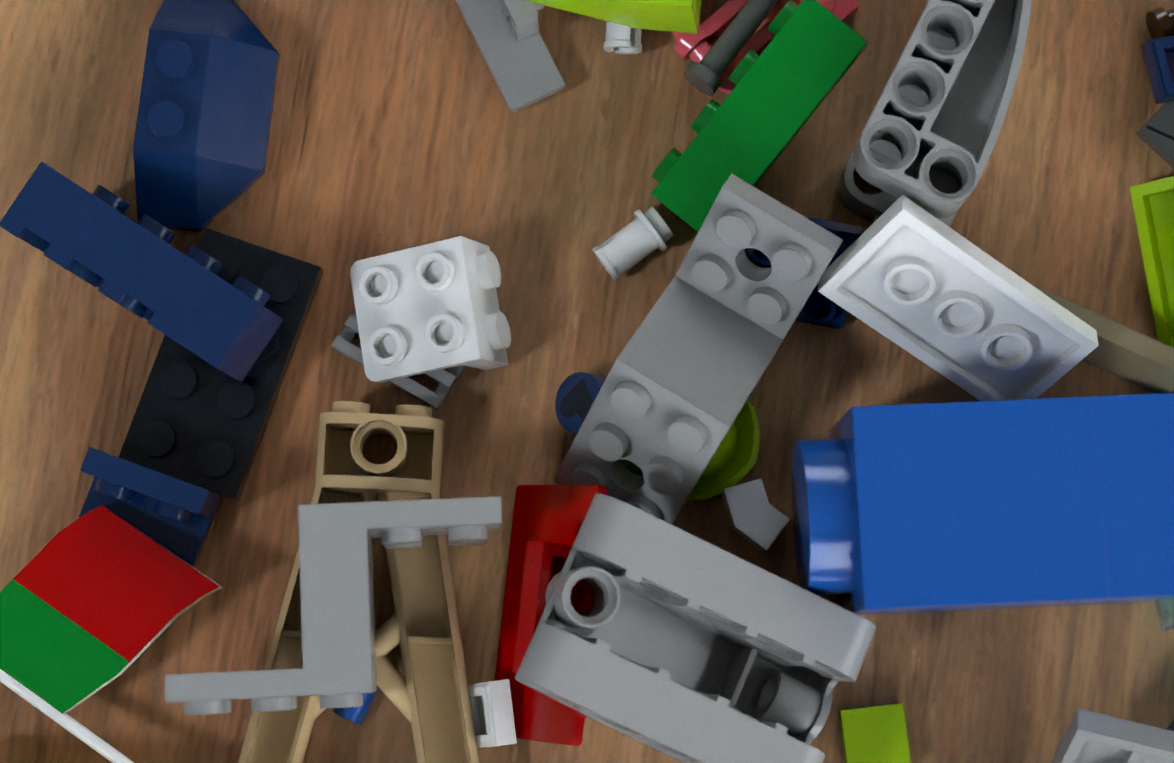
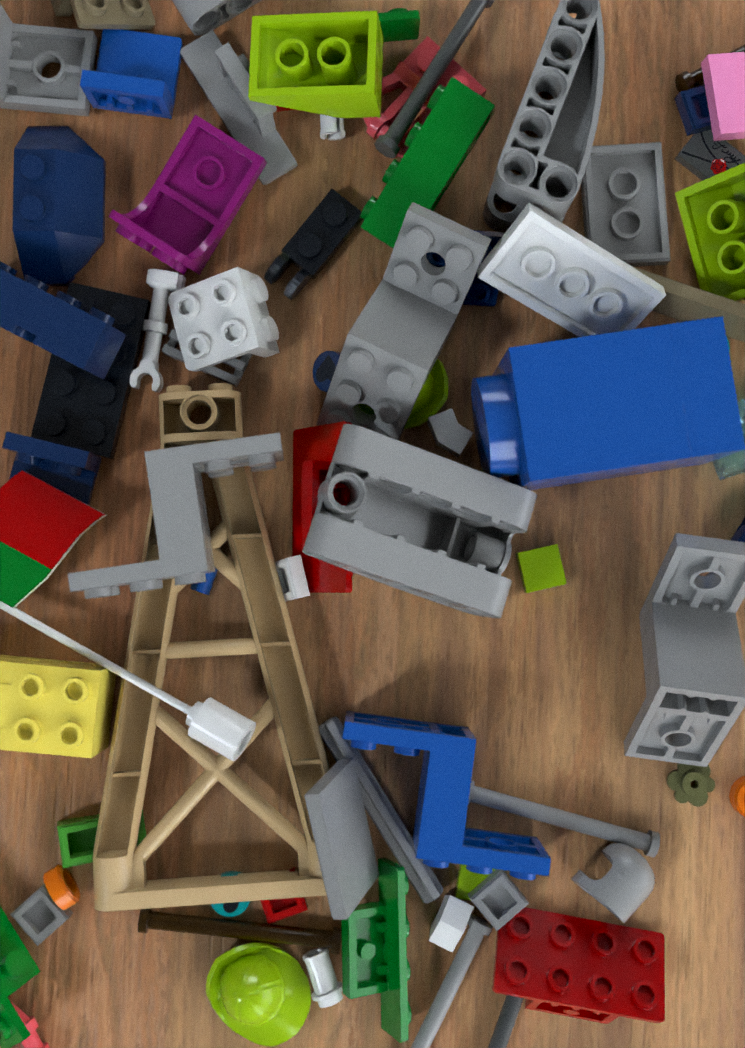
camera: 10 degrees left, 5 degrees up
(326, 307) = (162, 283): none -> white piece
(404, 125) = (193, 198): none -> magenta bracket
(581, 204) = (315, 242): none -> black hinge
(633, 242) = (353, 263): white pin -> none
(1055, 196) = (627, 203): none -> light grey tile

